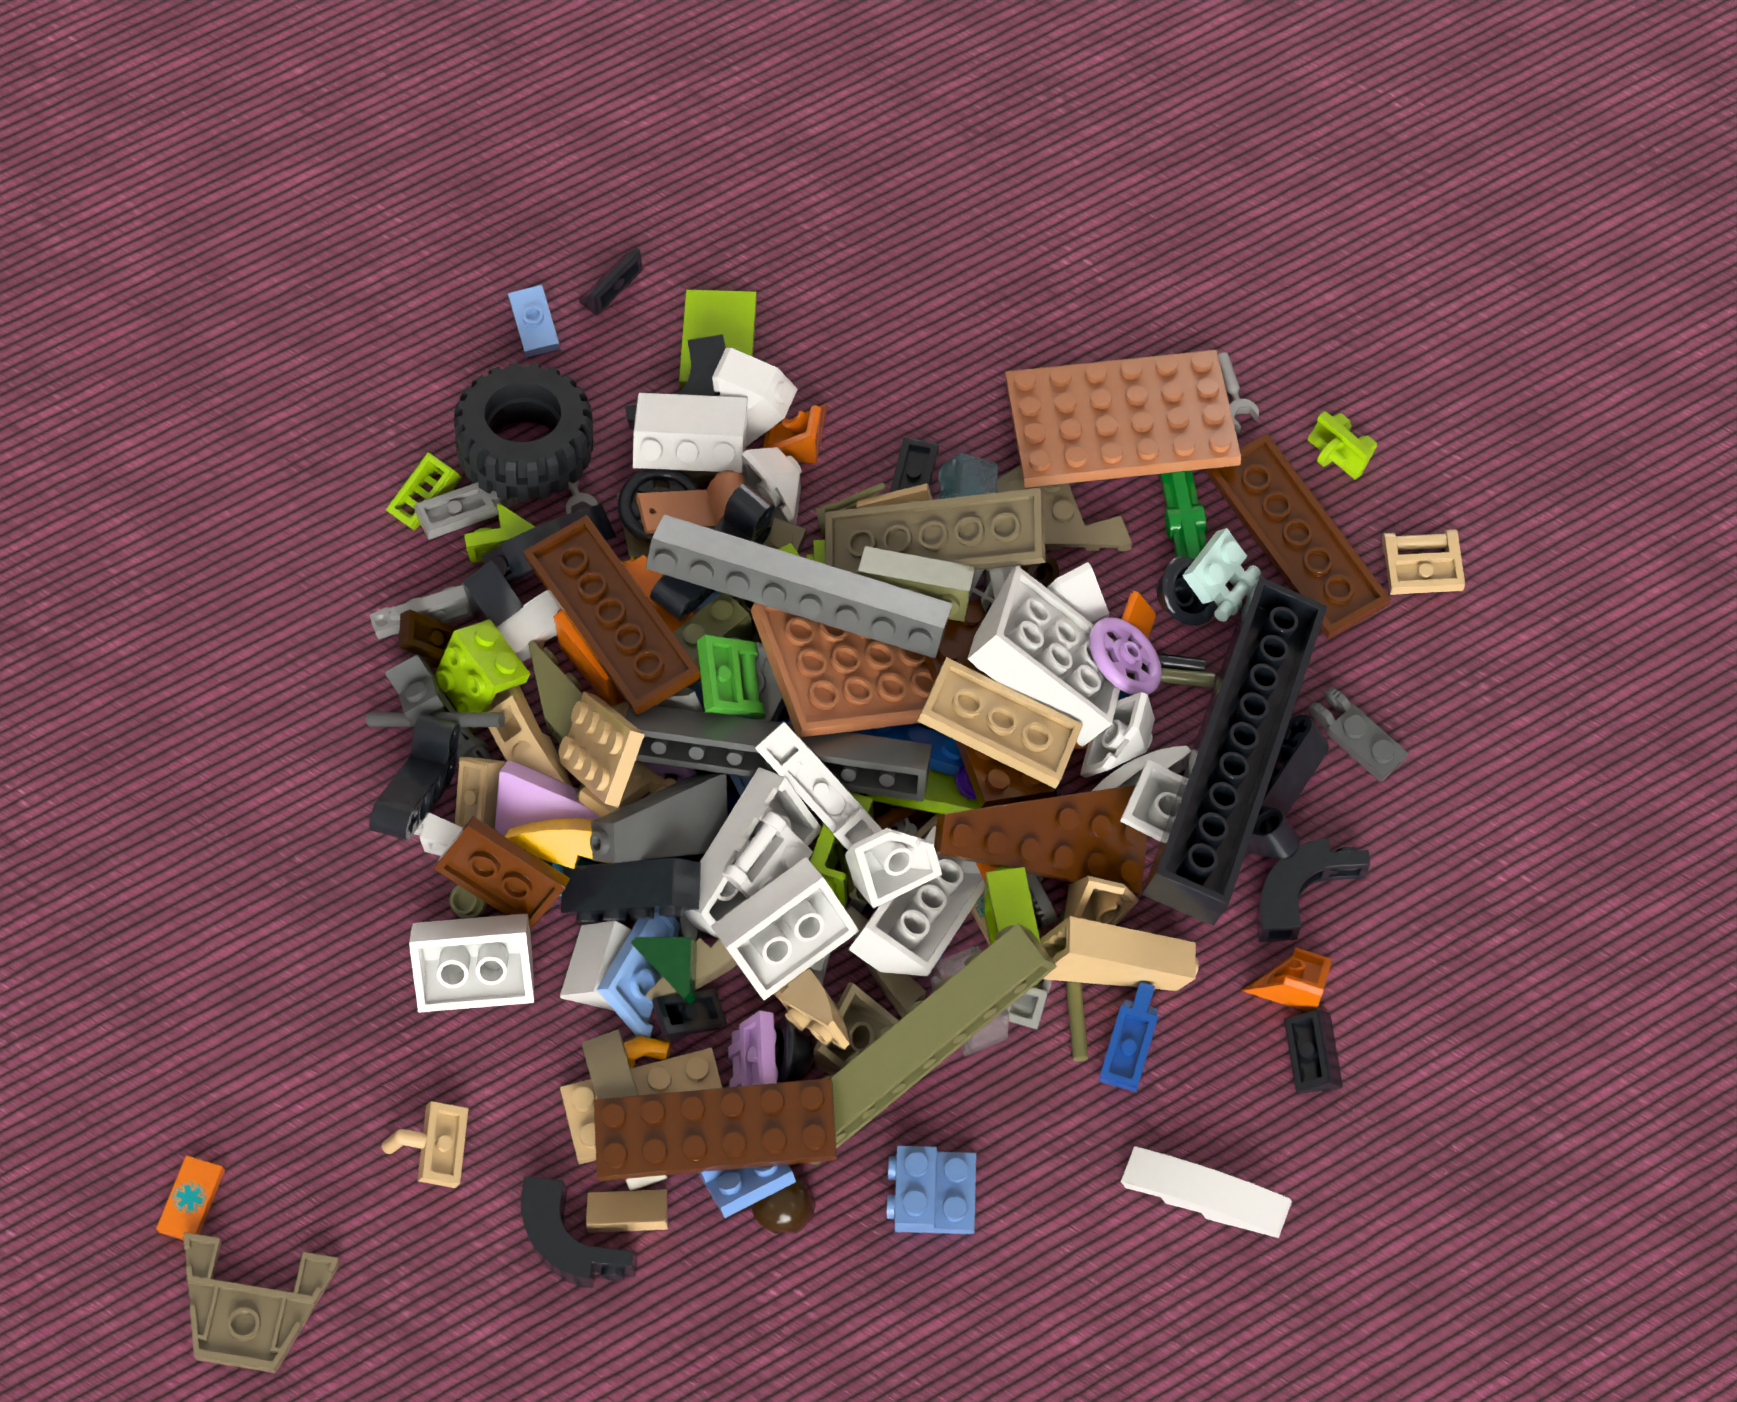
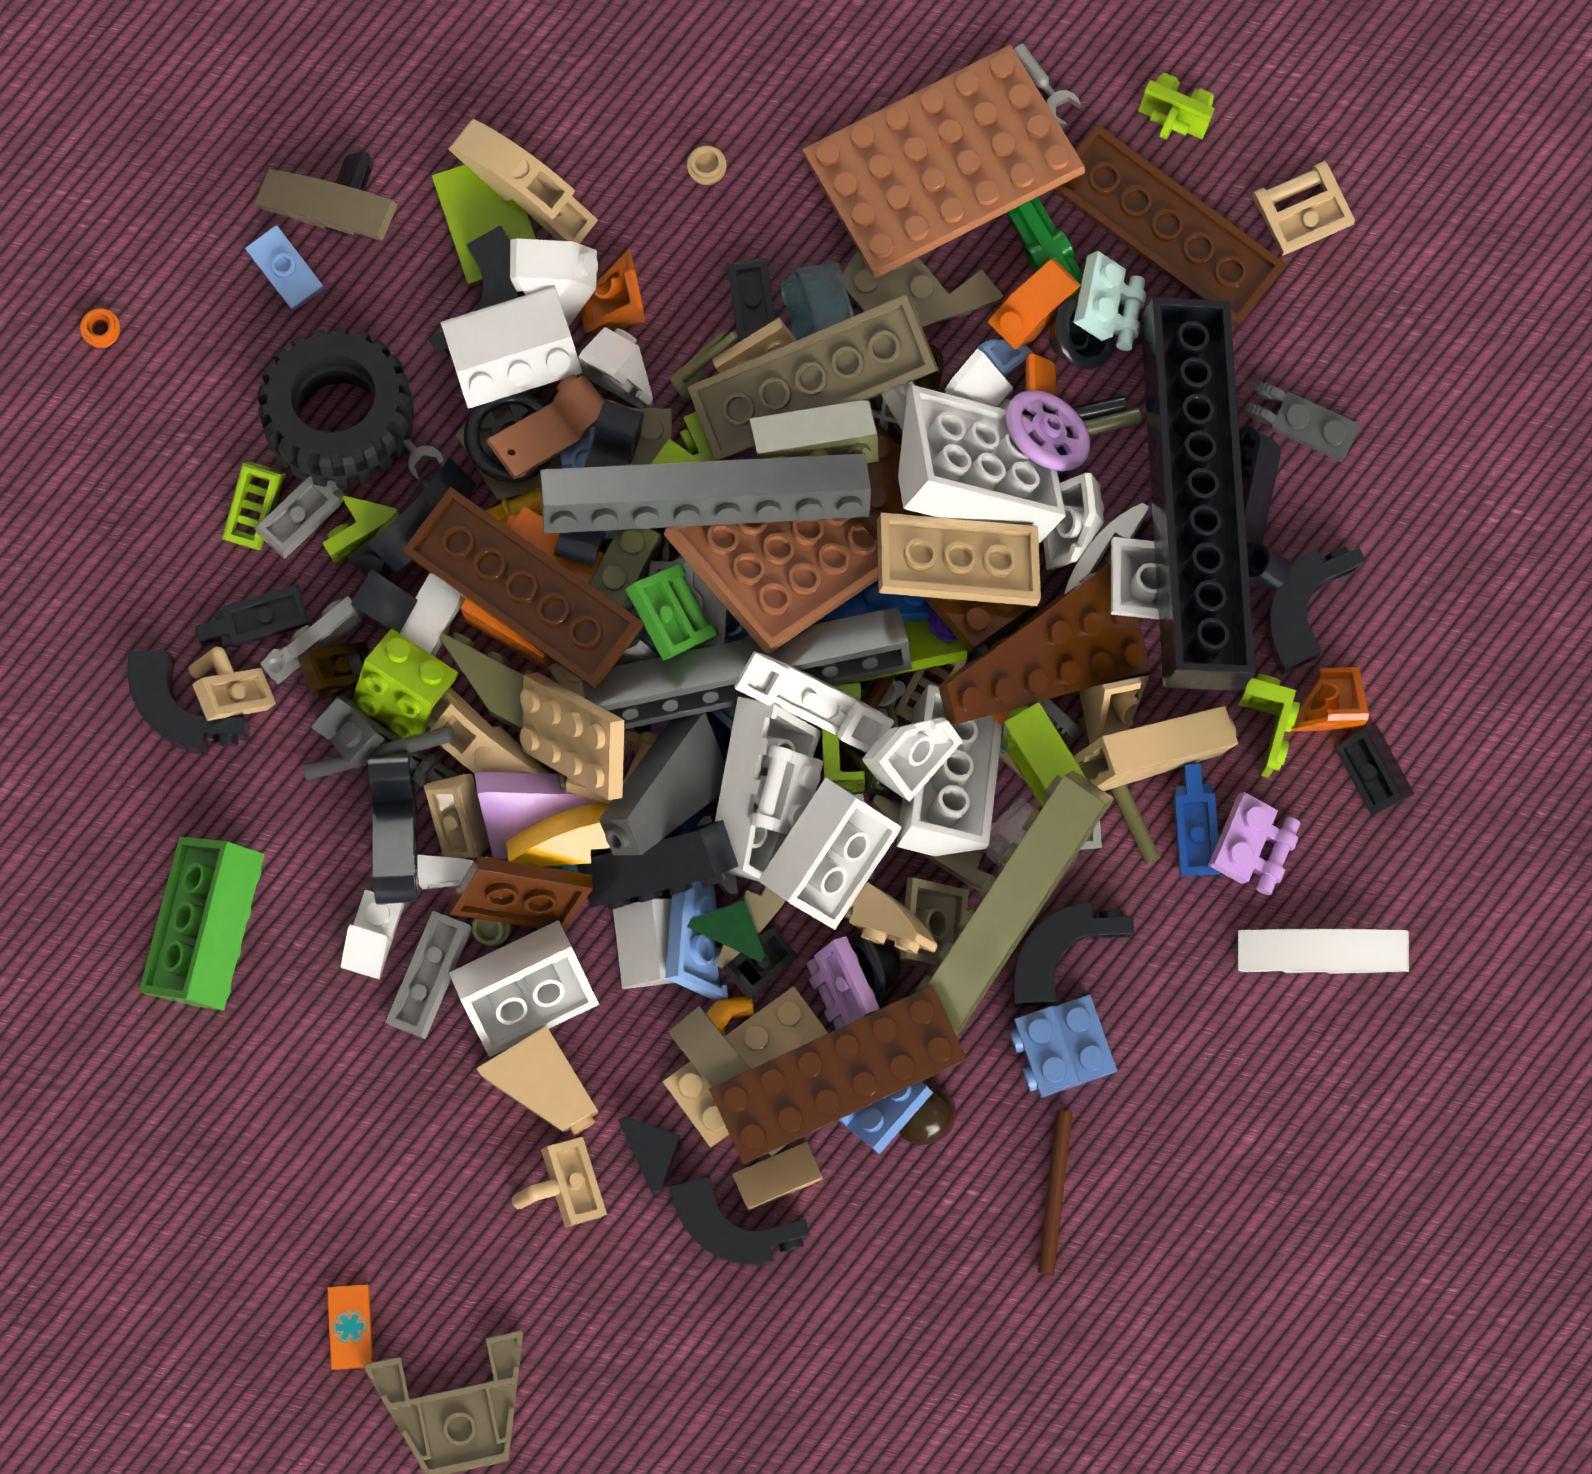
camera: 20 degrees left, 15 degrees up
(223, 807) = (202, 922): none -> bright green slope
(269, 607) = (152, 692): none -> black arch
(328, 624) = (229, 691): none -> tan plate
(360, 306) = (94, 318): none -> orange plate
(361, 872) = (370, 936): none -> white slope
(382, 579) = (256, 618): none -> black hinge
(394, 920) = (428, 974): none -> light grey plate
(454, 1046) = (542, 1081): none -> tan slope
(525, 1143) = (652, 1149): none -> black slope
(587, 276) = (325, 204): none -> dark tan slope
(759, 311) = (525, 179): none -> tan slope
(874, 1320) = (1055, 1192): none -> reddish brown bar
(919, 358) = (706, 165): none -> tan plate
(960, 1091) = (1038, 958): none -> black arch
(1114, 591) = (1004, 356): none -> light blue tile
(1146, 554) = (1034, 304): none -> orange slope
(1169, 1065) = (1243, 841): none -> lavender plate
(1240, 951) = (1269, 697): none -> lime bracket

